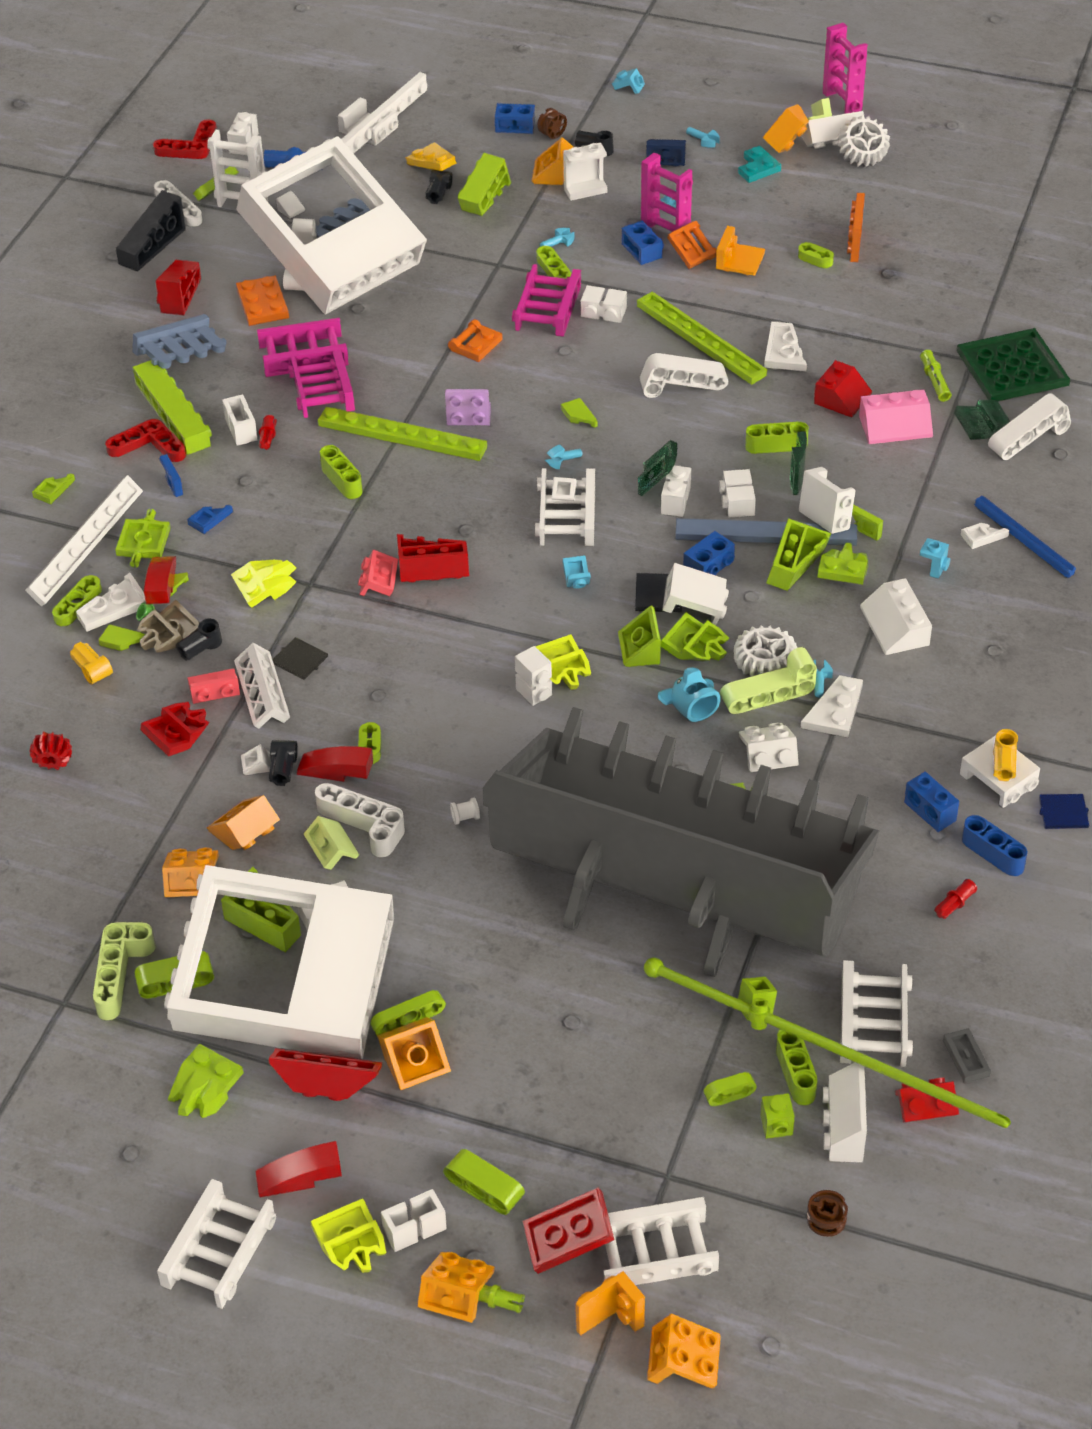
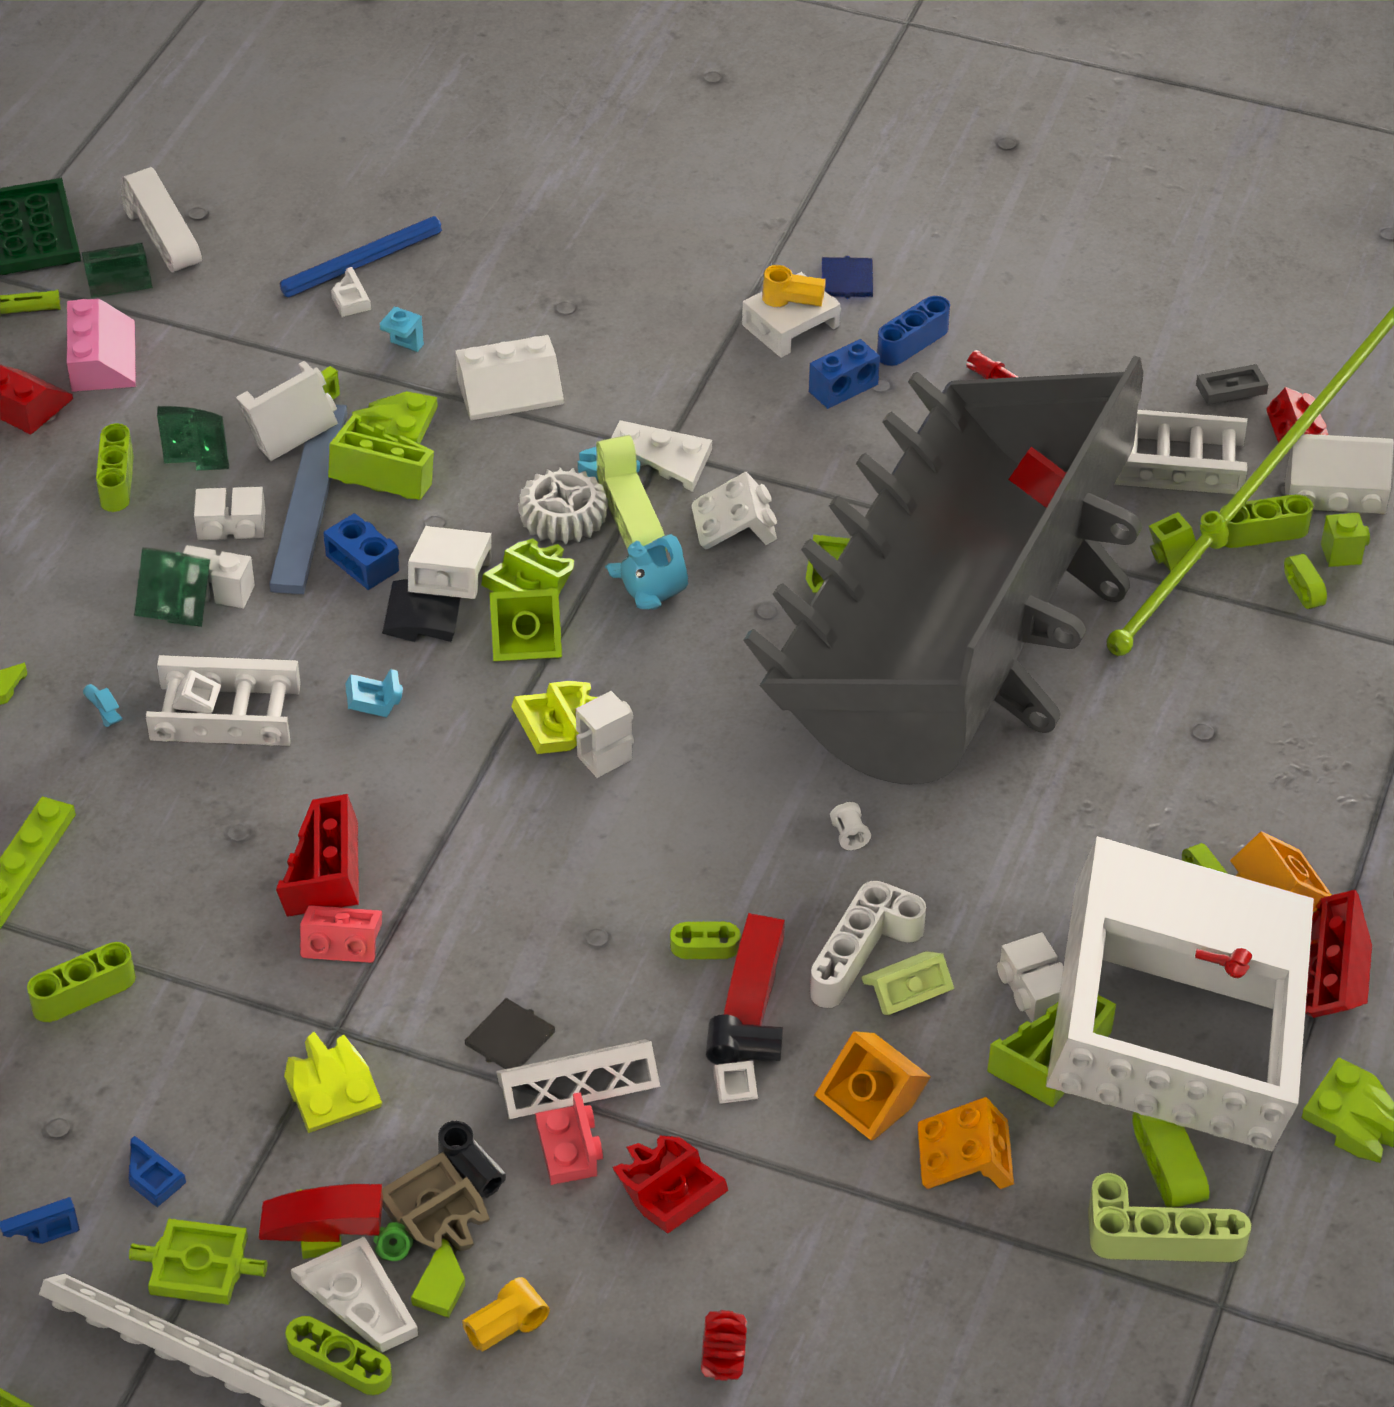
camera: 90 degrees left, 0 degrees up
(285, 976) = (1234, 965): none -> red hand

